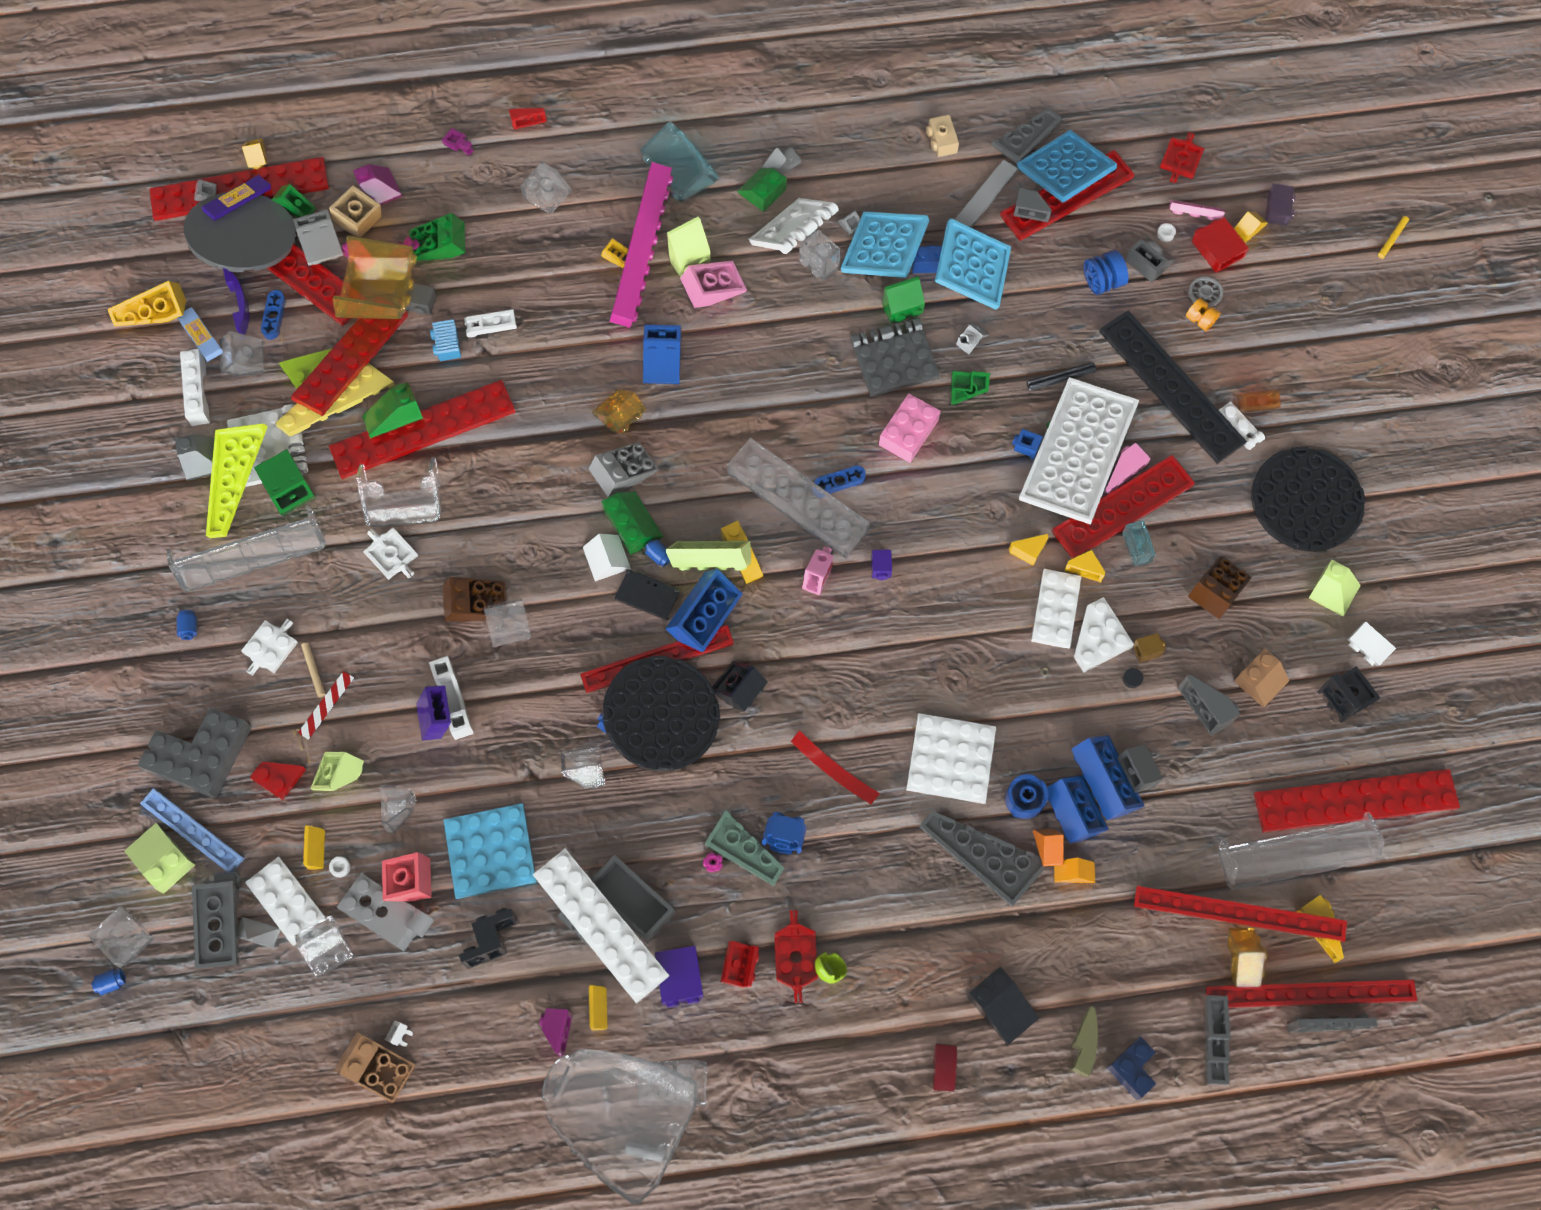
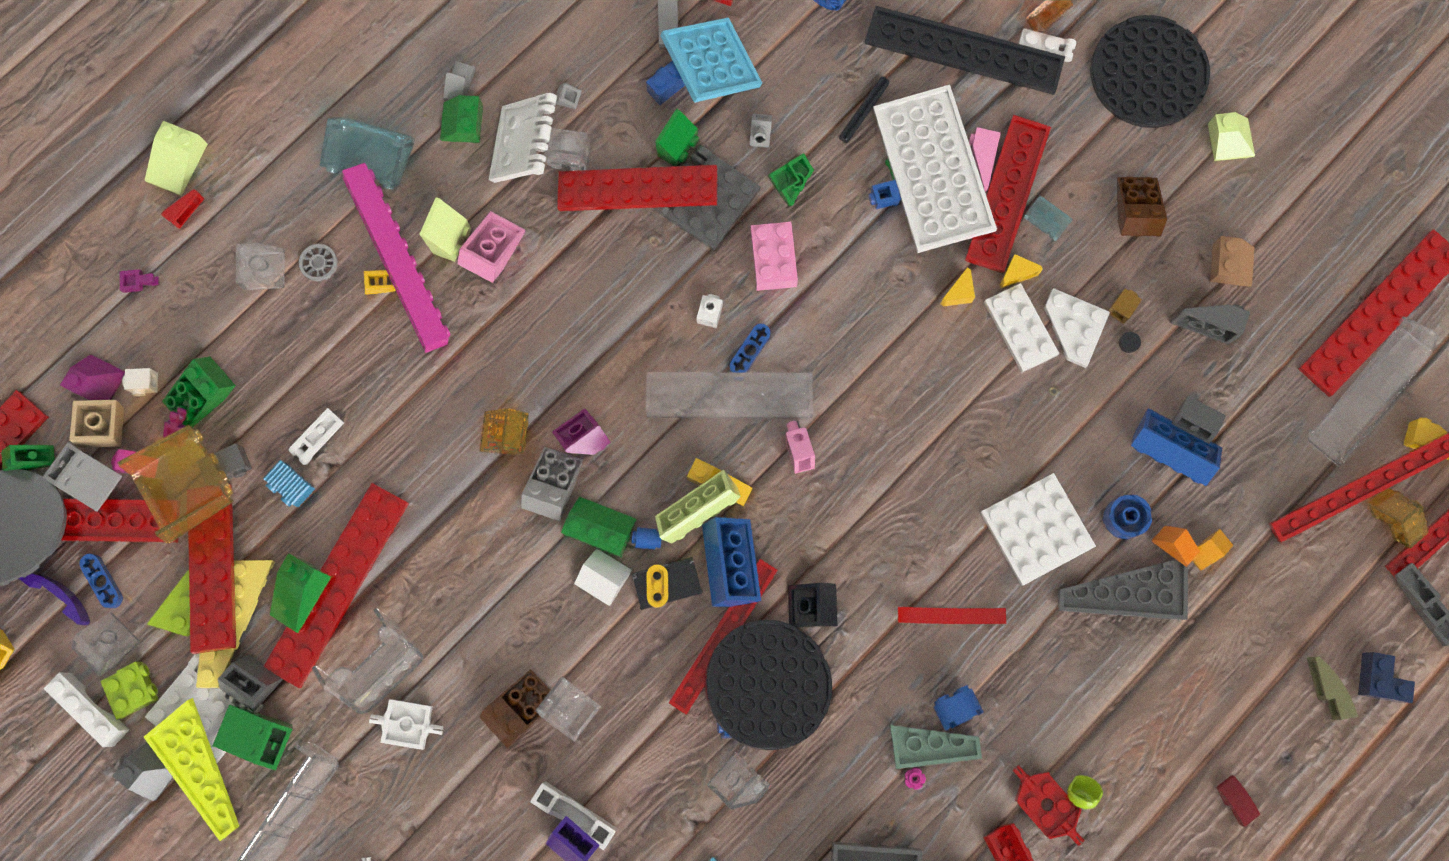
camera: 35 degrees left, 10 degrees up
(200, 334) = (47, 655): light blue tile -> none
(232, 396) = (130, 689): none -> lime plate
(311, 445) = (248, 682): none -> dark grey slope
(406, 206) = (140, 381): none -> white brick
(548, 81) = (174, 157): none -> yellowish green slope
(587, 213) = (318, 262): none -> light grey wheel
(637, 588) = (657, 586): none -> yellow plate
(662, 354) = (500, 350): blue slope -> none
(671, 451) = (581, 434): none -> magenta slope
(832, 432) = (709, 310): none -> white brick
(849, 315) = (637, 188): none -> red plate
(881, 564) = (847, 401): dark purple brick -> none
(885, 244) = (618, 96): medium azure plate -> none
(1003, 1005) = (1241, 710): black slope -> none
(1076, 809) = (1174, 495): blue slope -> none
(1342, 698) = (1310, 232): black bracket -> none
(1371, 644) = (1297, 166): white brick -> none

